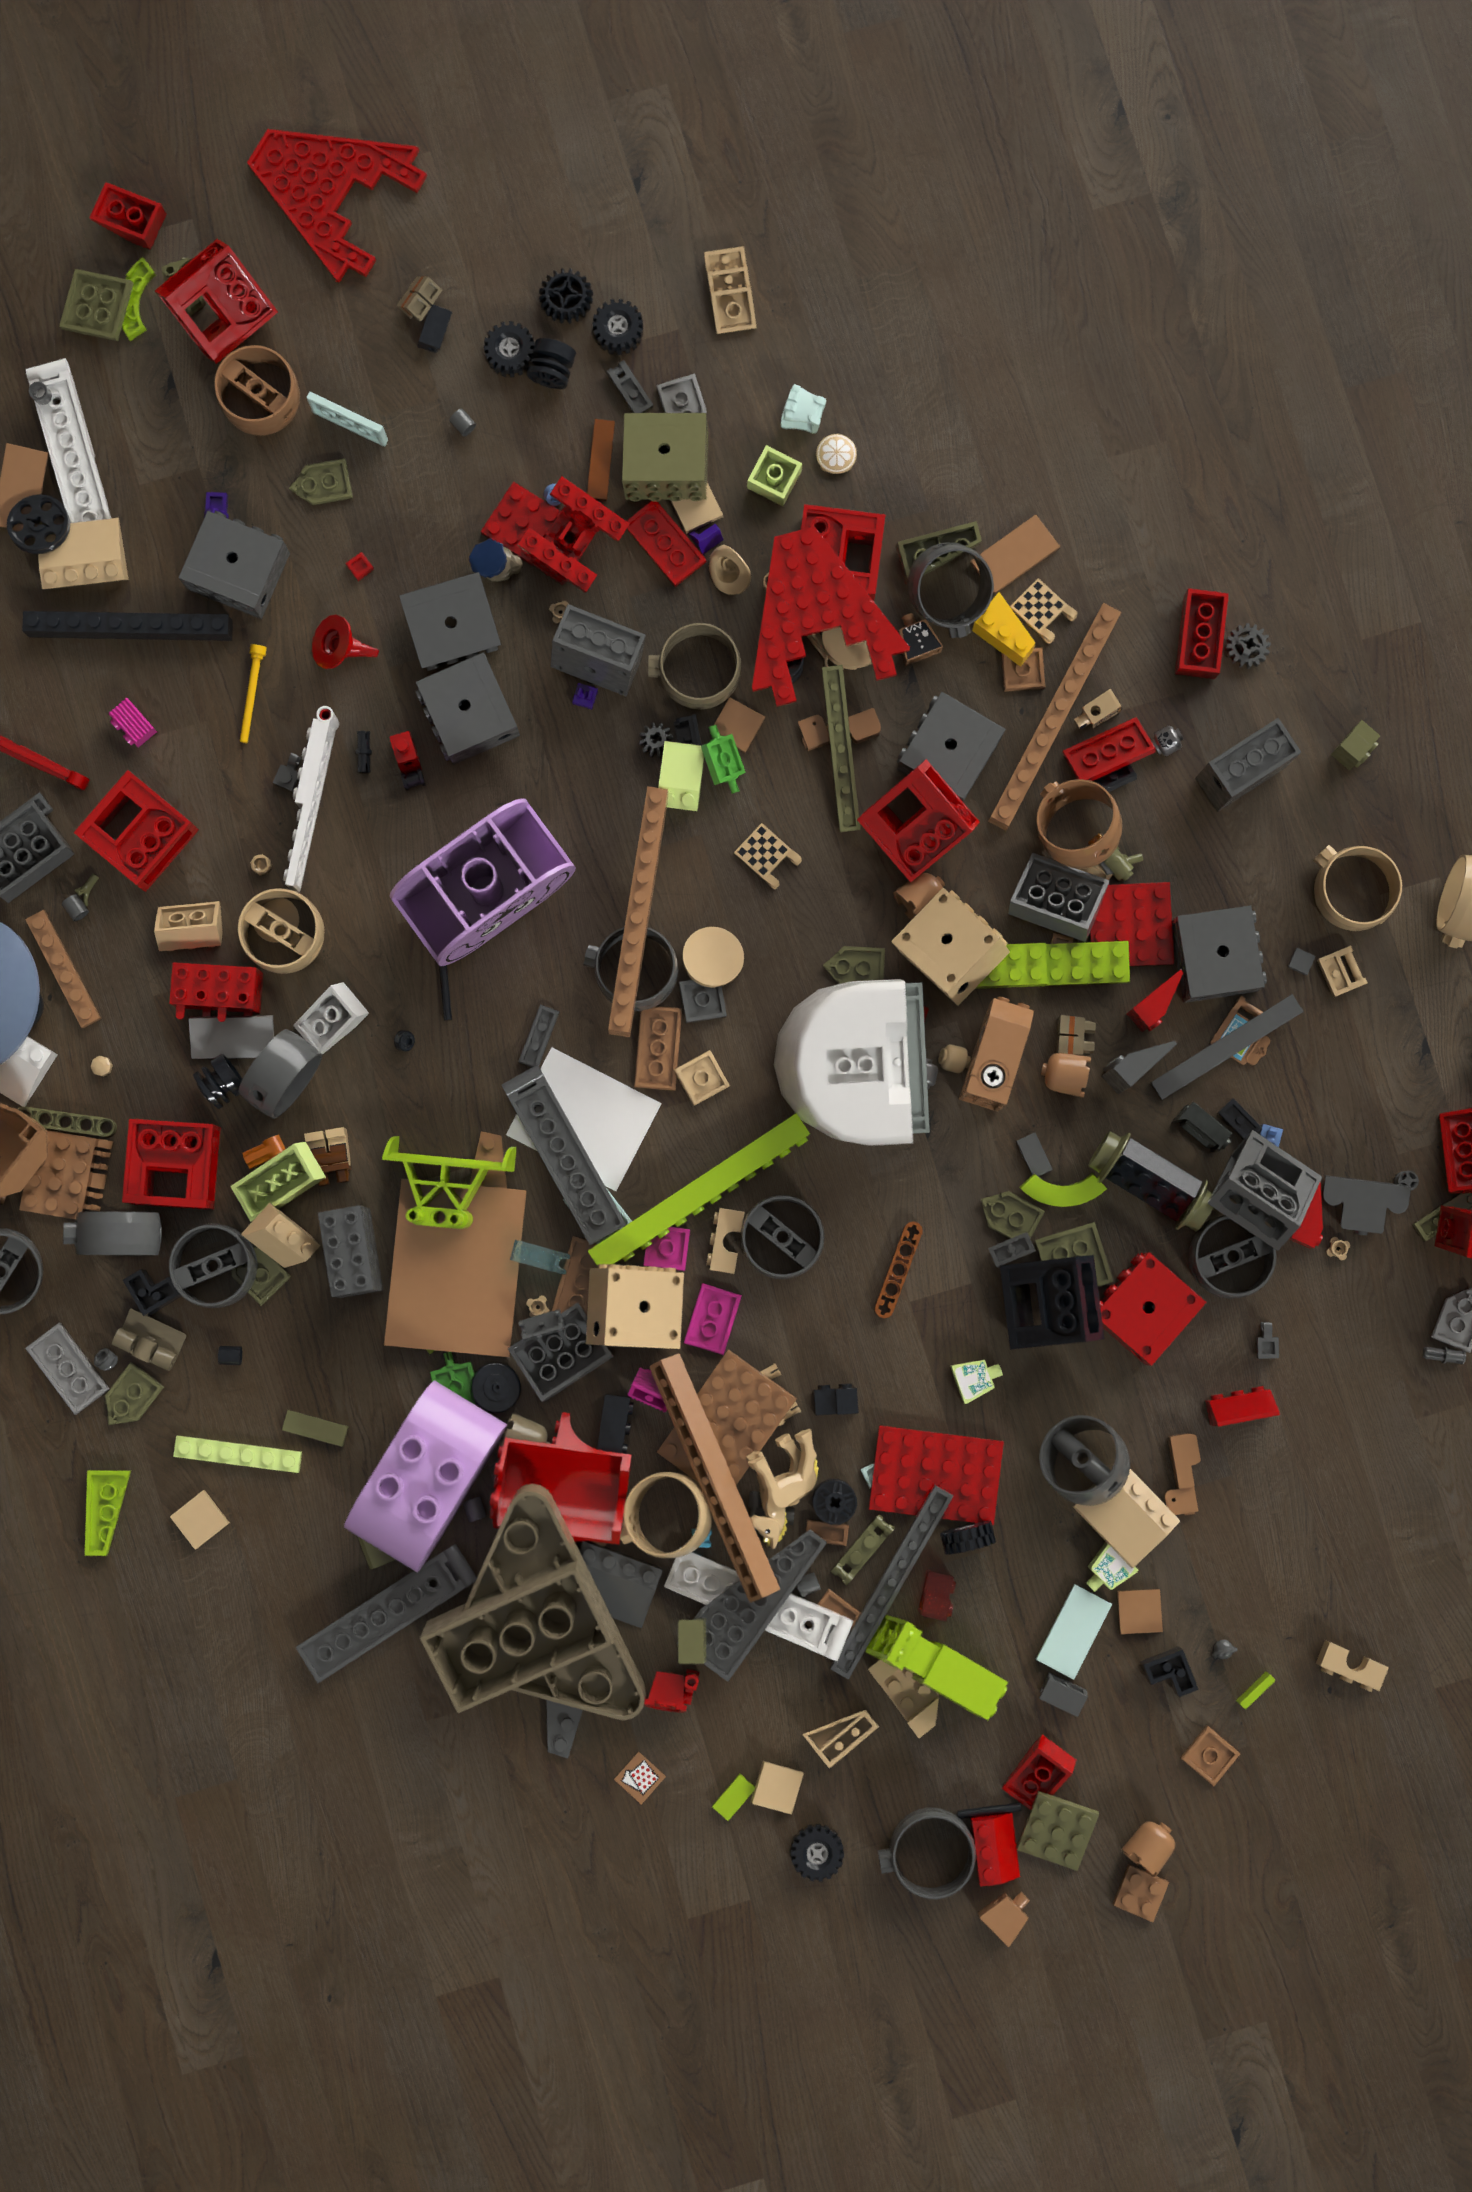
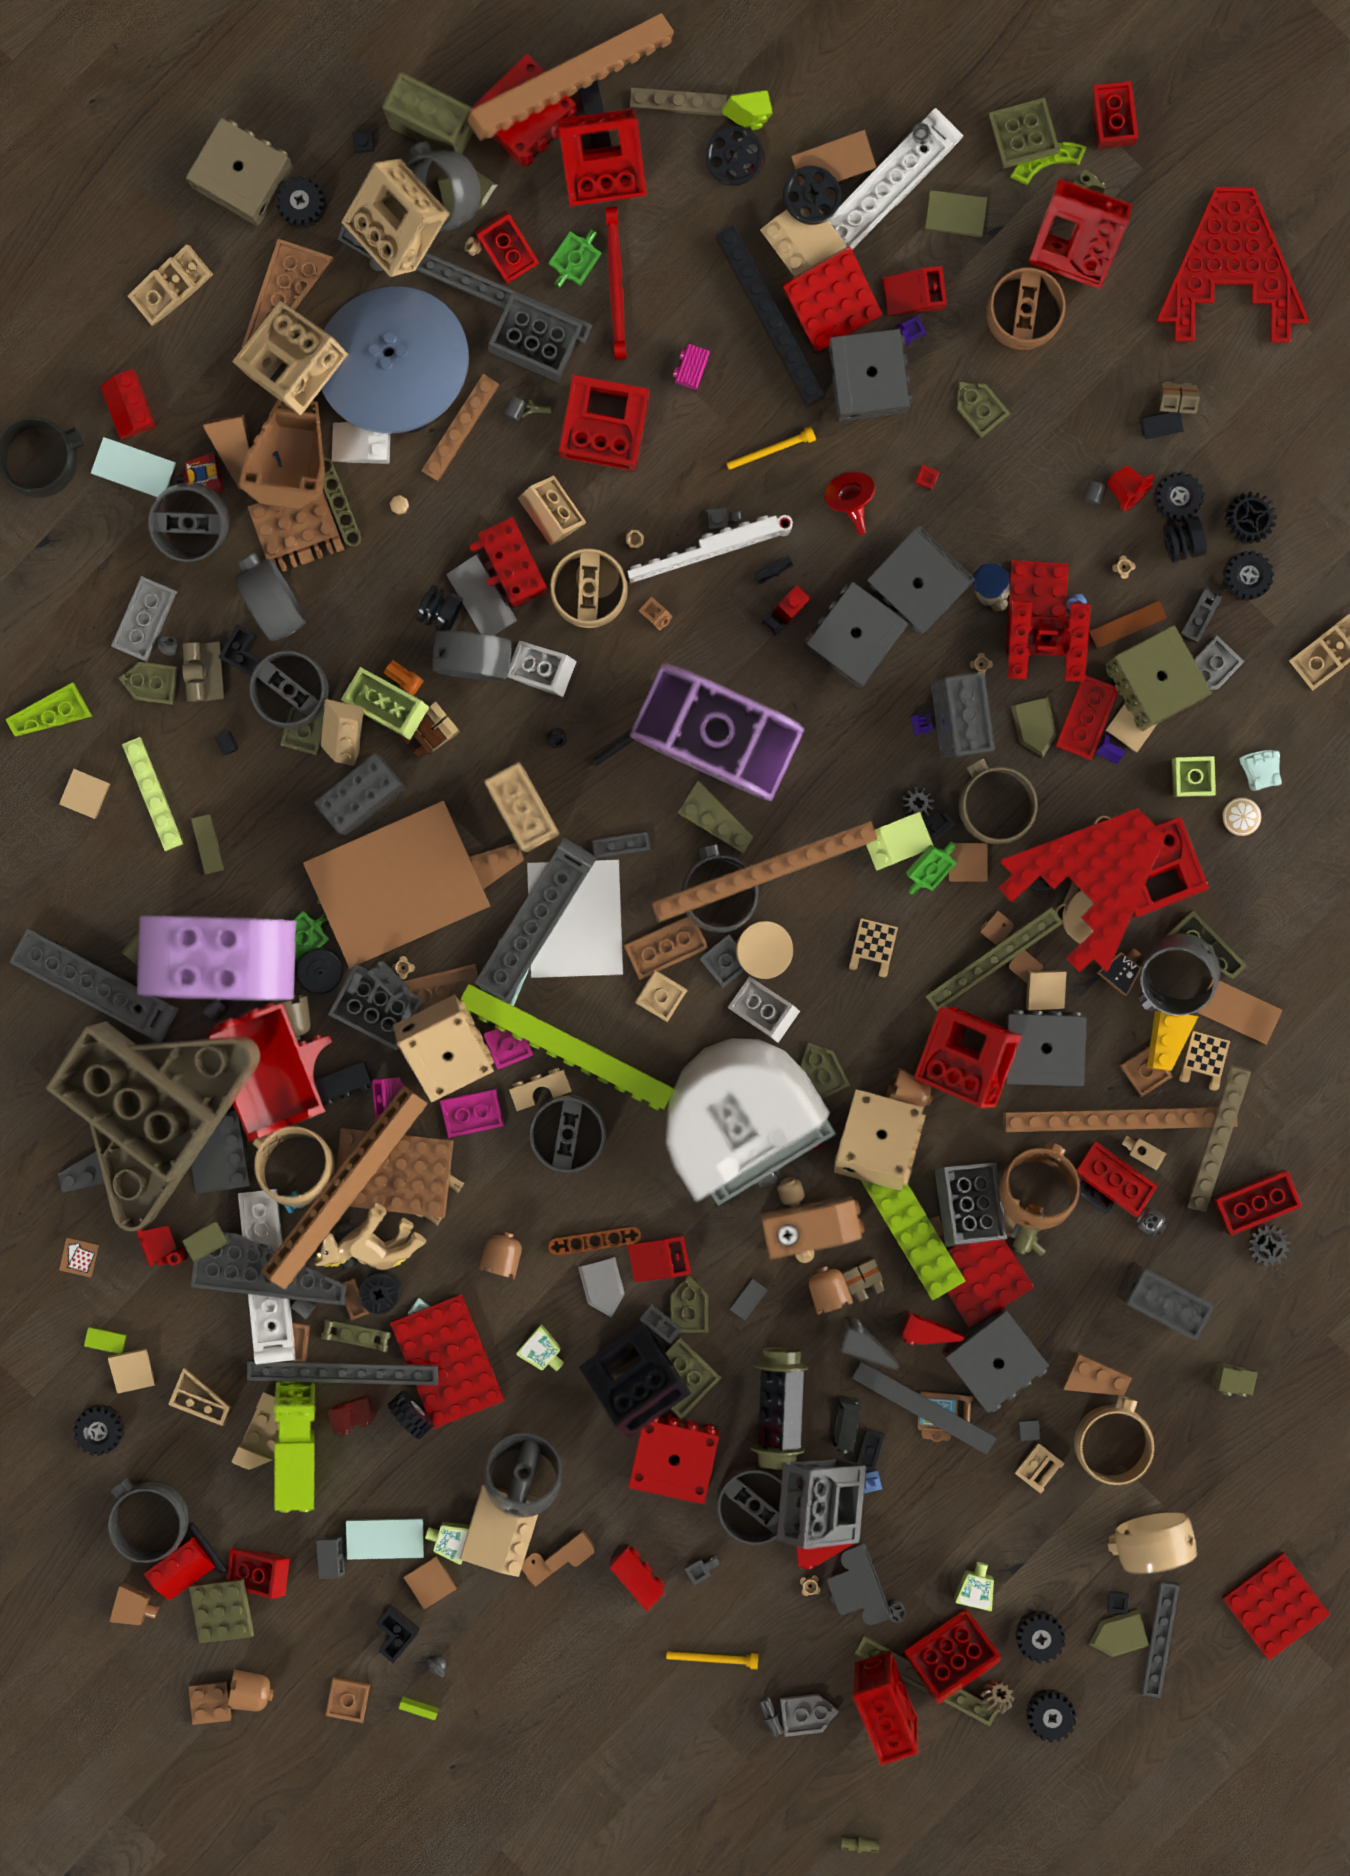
camera: 65 degrees right, 5 degrees up
(134, 407) = (956, 213): none -> olive tile
(144, 559) = (832, 299): none -> red plate
(161, 1156) = (353, 598): red piece -> none
(183, 481) = (915, 291): none -> red slope
(341, 883) = (656, 613): none -> medium nougat bracket
(347, 419) = (1043, 397): light aqua tile -> none
(450, 1105) = (522, 808): none -> tan piece
(454, 1218) = (424, 838): lime piece -> none
(474, 387) = (1129, 487): none -> red container
(538, 1256) = (442, 946): clear light blue plate -> none
(545, 428) = (1127, 563): none -> tan plate
(560, 936) = (710, 815): none -> olive wedge
(645, 594) = (1035, 725): none -> olive tile
(729, 570) = (1092, 784): tan hat -> none
(768, 988) = (763, 1009): none -> white slope
(836, 1400) = (461, 1249): black brick -> none
(863, 1365) = (501, 1255): none -> medium nougat cylinder
(896, 718) = (1046, 990): none -> tan tile
(945, 1286) = (602, 1285): none -> light grey tile
(949, 1217) = (659, 1258): none -> red slope
(1021, 1079) = (805, 1257): none -> tan tile
(1063, 1195) = (728, 1340): lime tile -> none
(1122, 634) = (1218, 1138): none -> dark tan plate
(1283, 873) = (1094, 1377): none -> medium nougat wedge
(1369, 1673) = (481, 1791): tan arch -> none
(1380, 1344) = (750, 1661): none -> yellow piece
(1425, 1093) = (976, 1588): none -> torso

